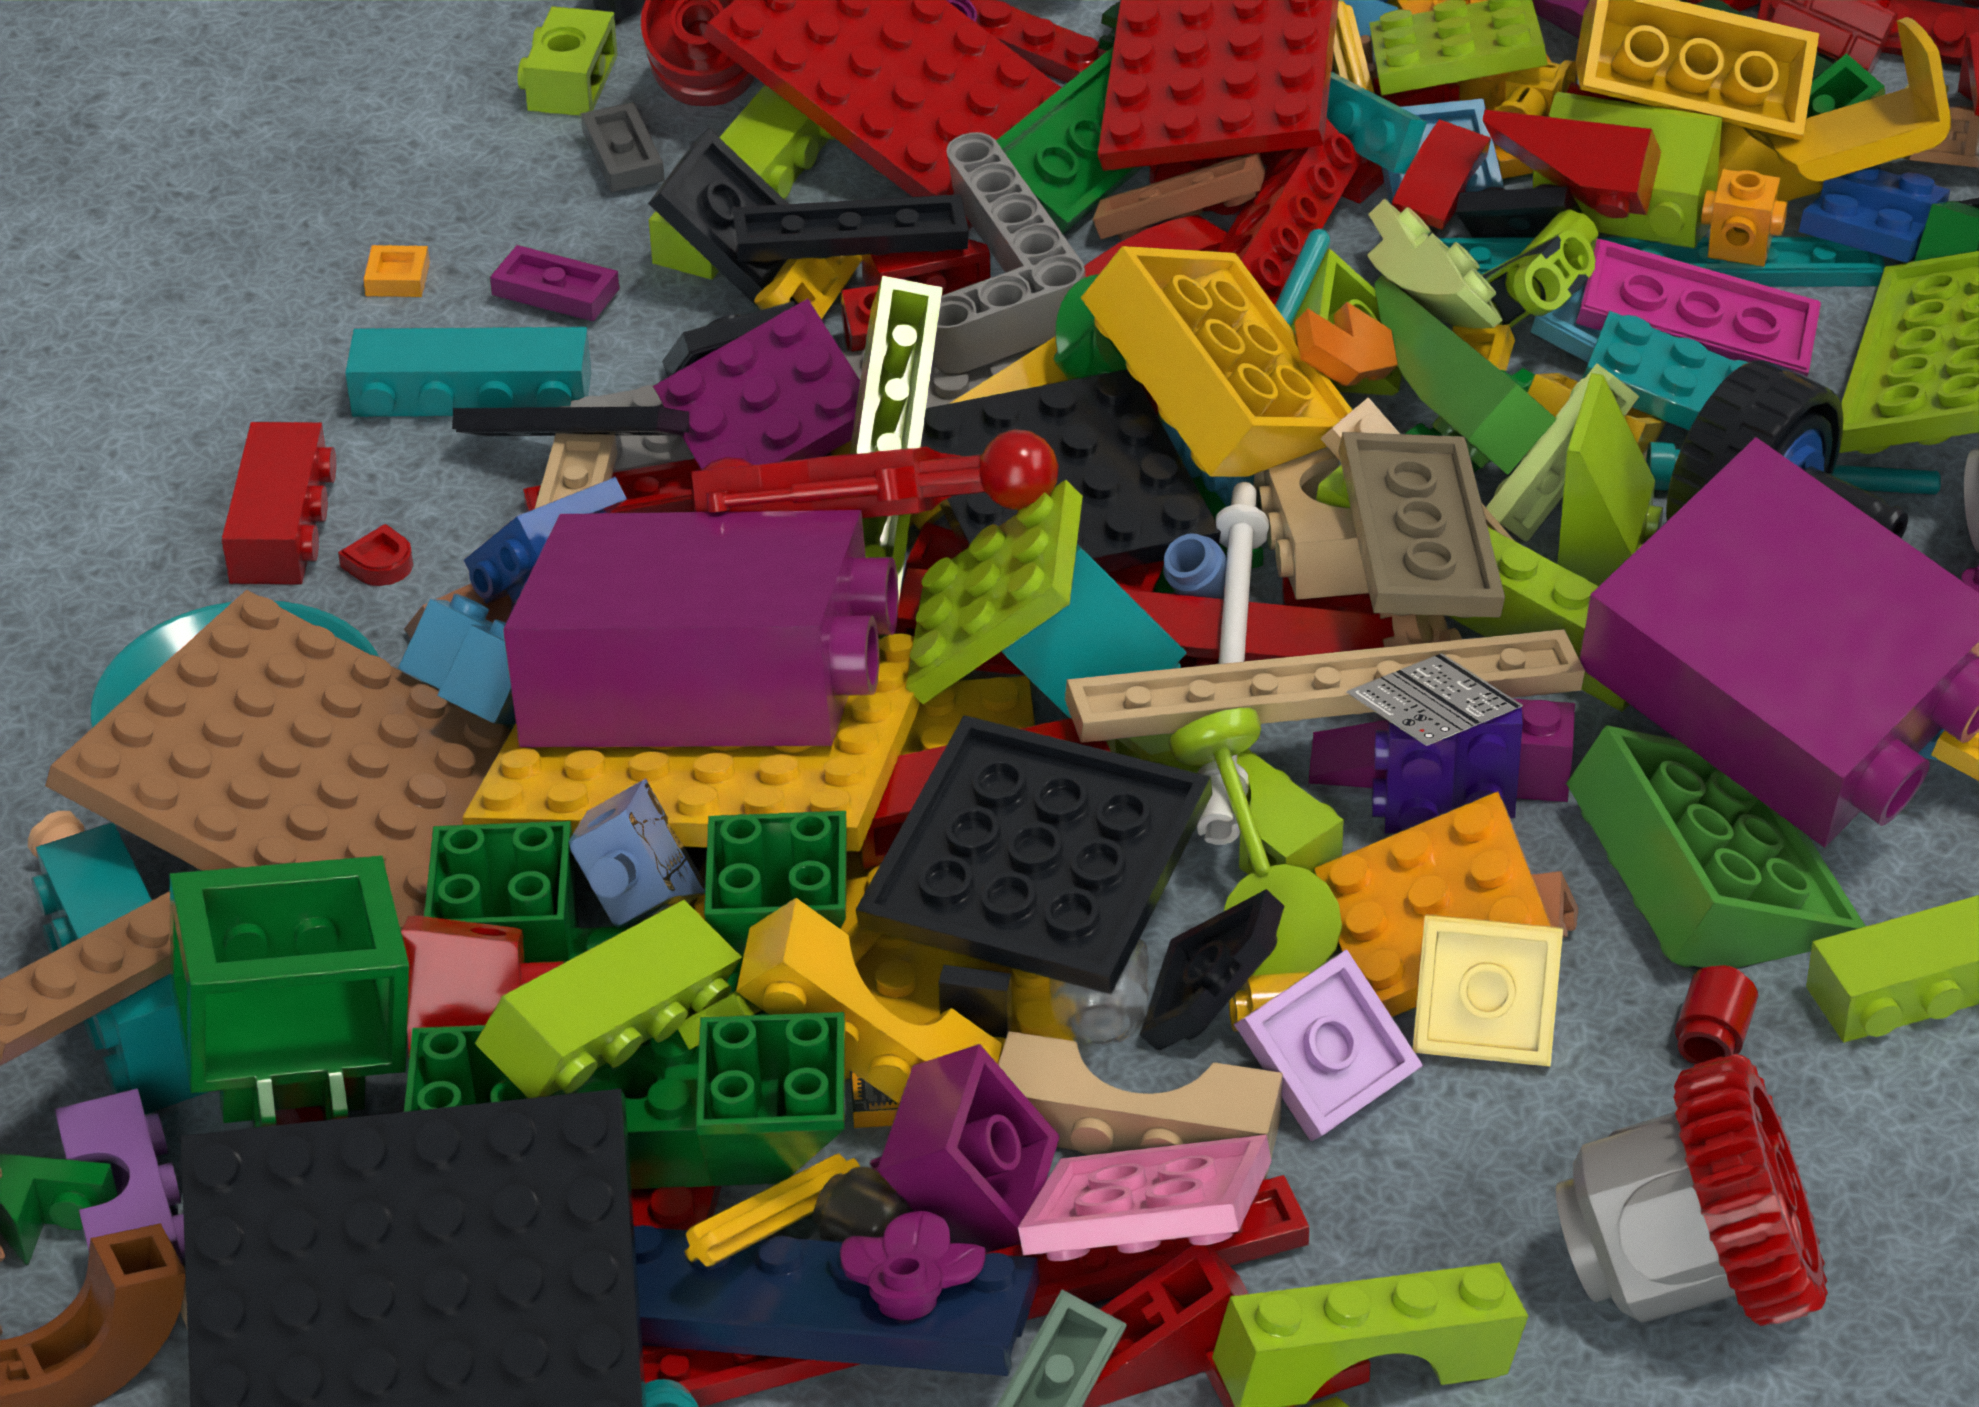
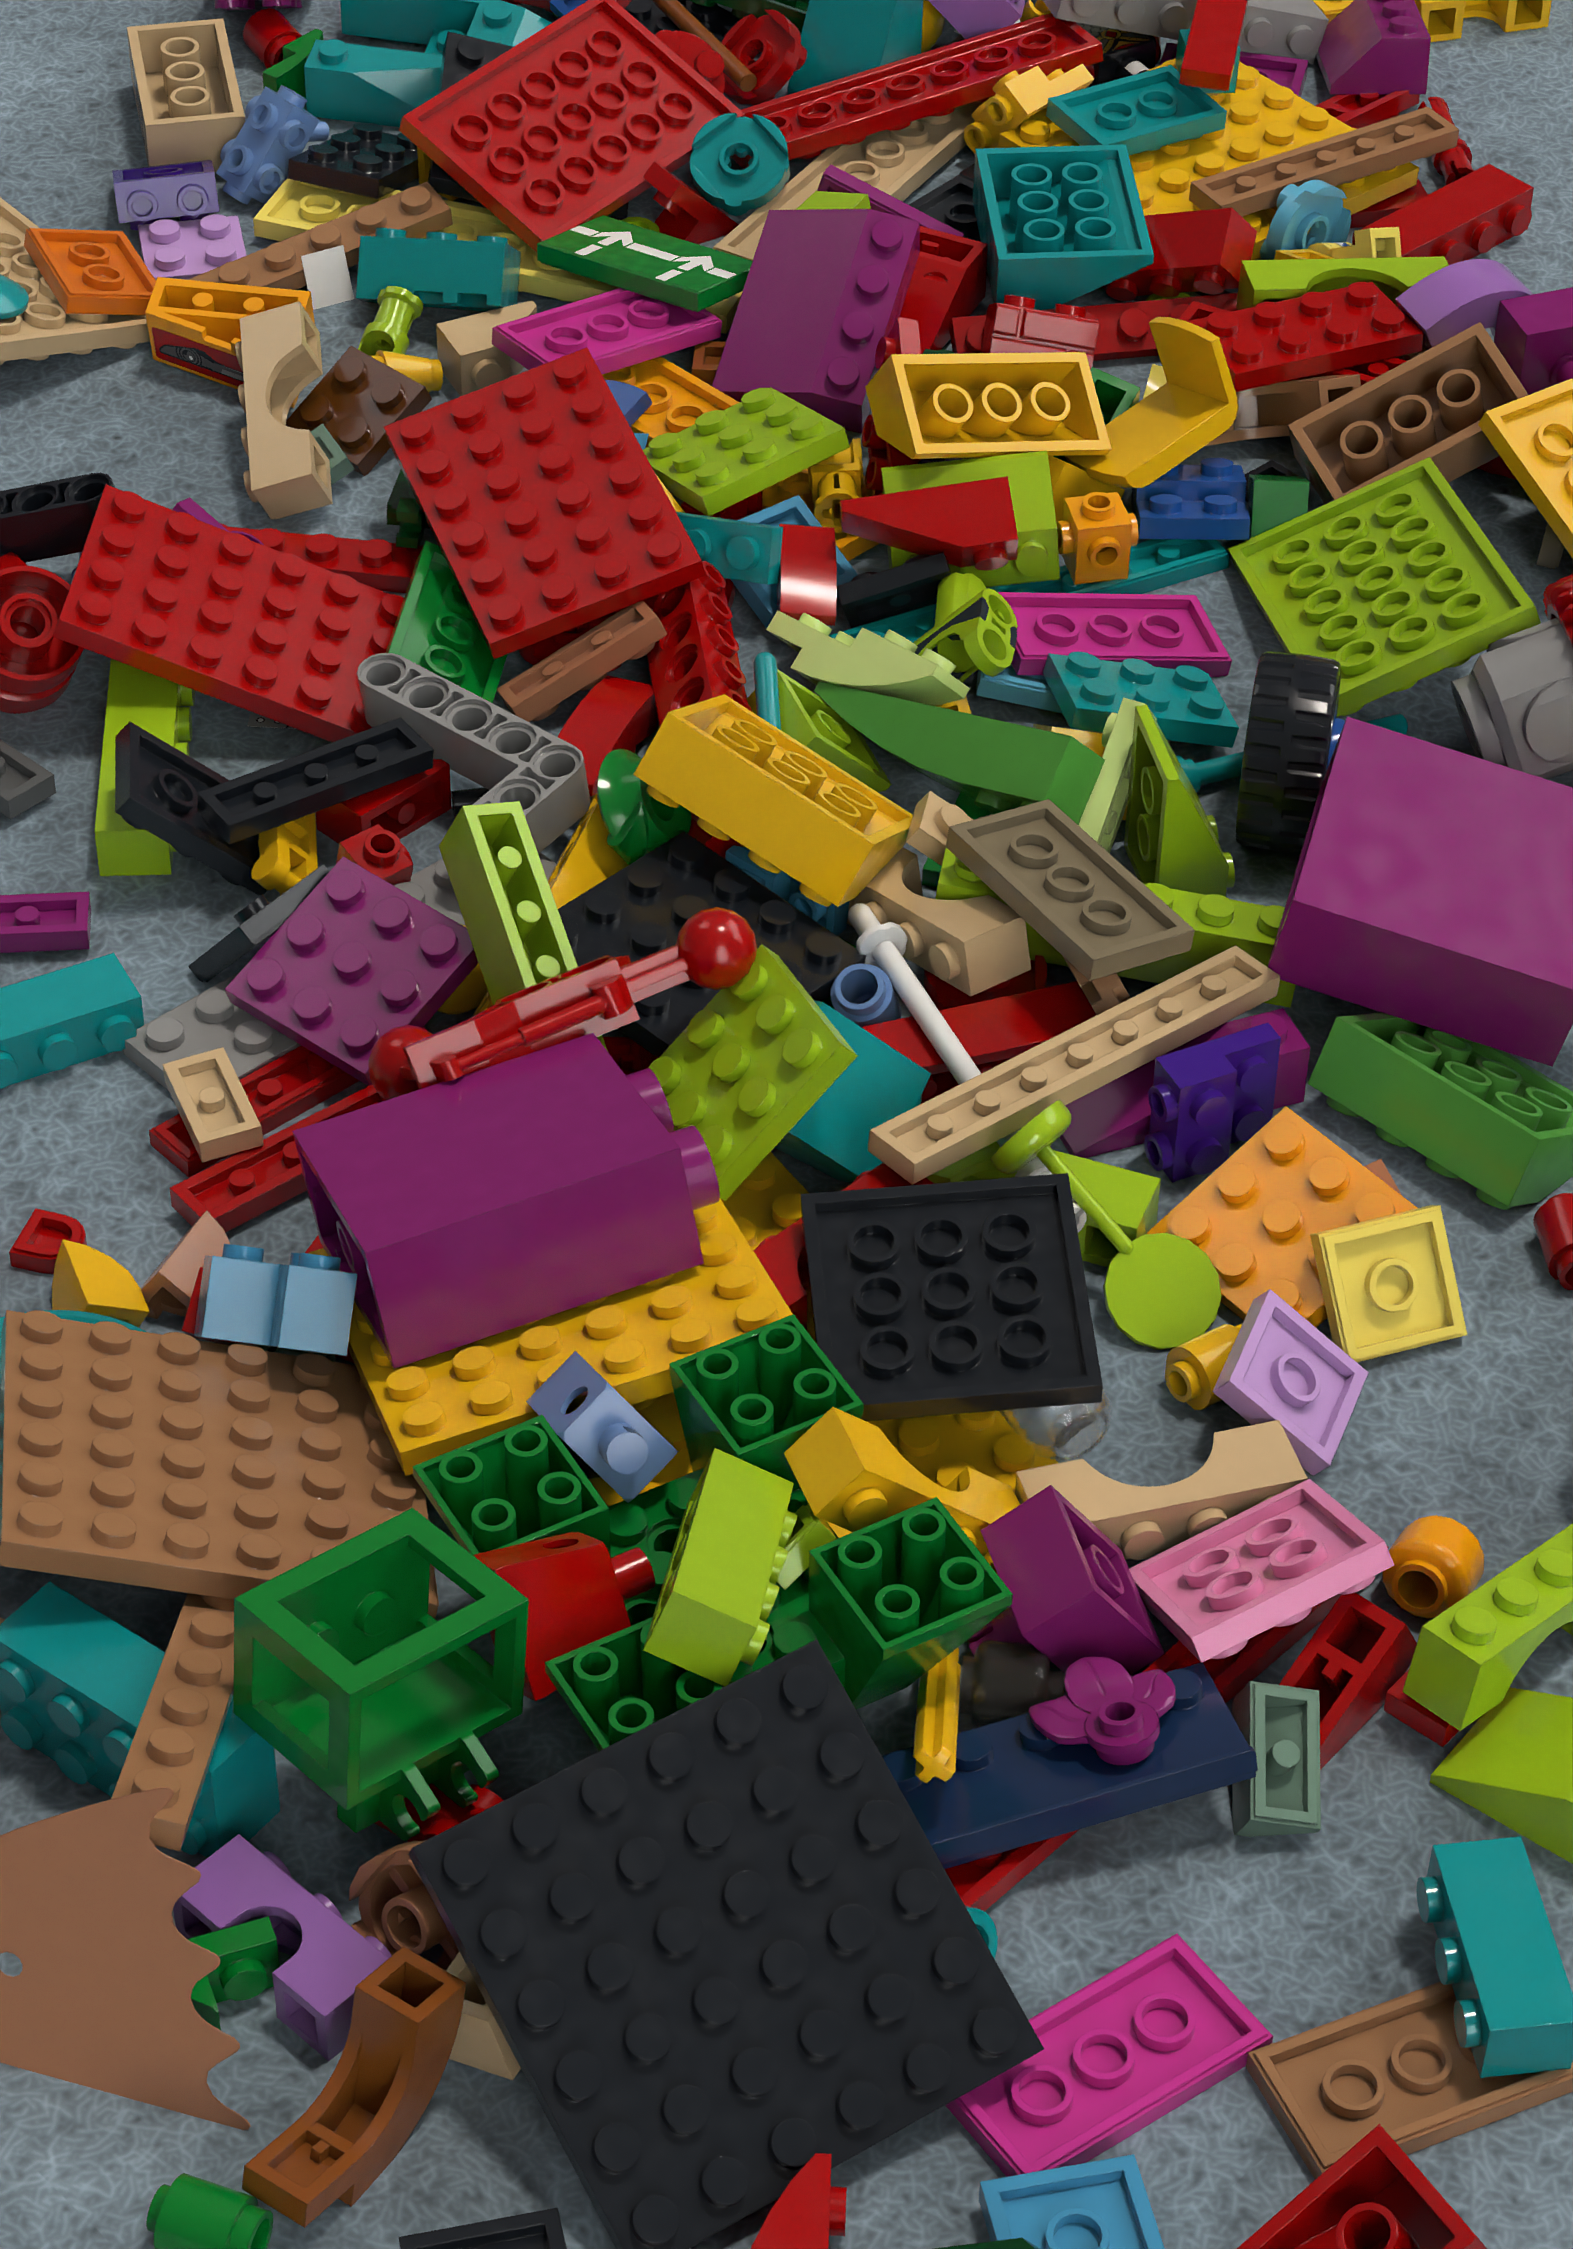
camera: 30 degrees left, 0 degrees up
(380, 606) = (95, 1284): none -> yellow brick
(507, 558) = (250, 1173): blue plate -> none
(571, 420) = (169, 1048): black tile -> none
(979, 996) = (974, 1445): black tile -> none
(1221, 960) = (1146, 1348): black plate -> none
(1337, 1250) = (1434, 1566): none -> light orange head
(1349, 349) = (857, 751): orange tile -> none
(1434, 699) = (1191, 1041): light grey sticker -> none

